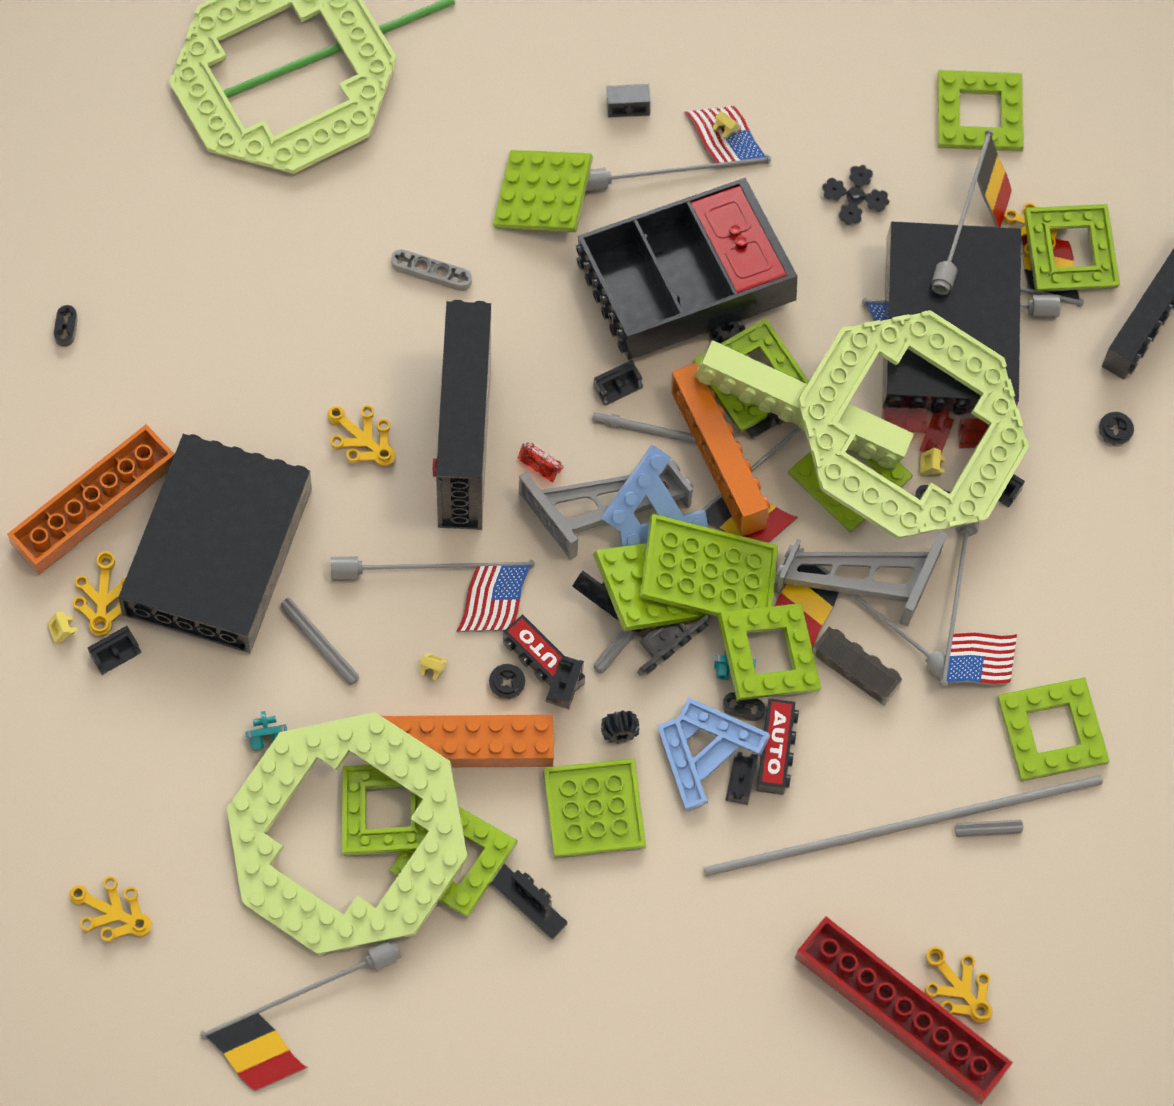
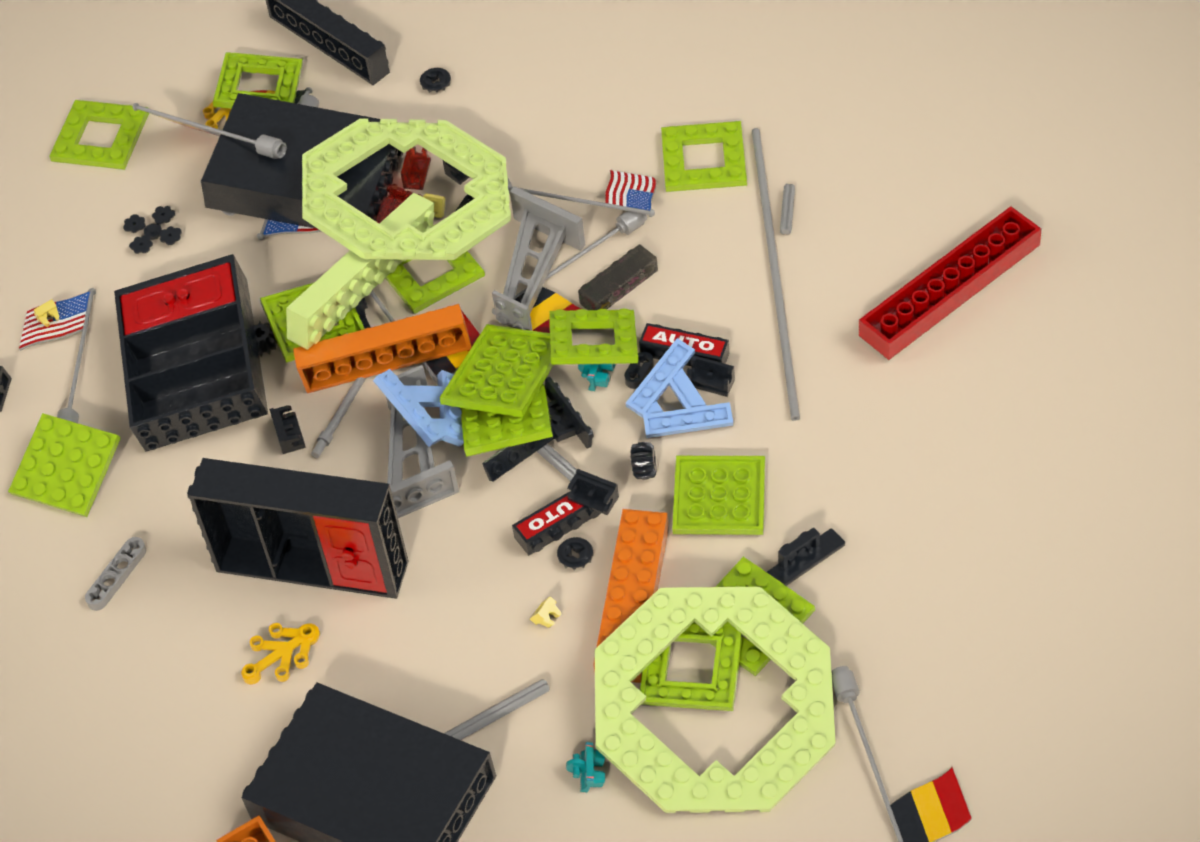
camera: 70 degrees left, 15 degrees down
(491, 596) = (477, 557): flag -> none
(960, 988) = (953, 235): yellow plant -> none

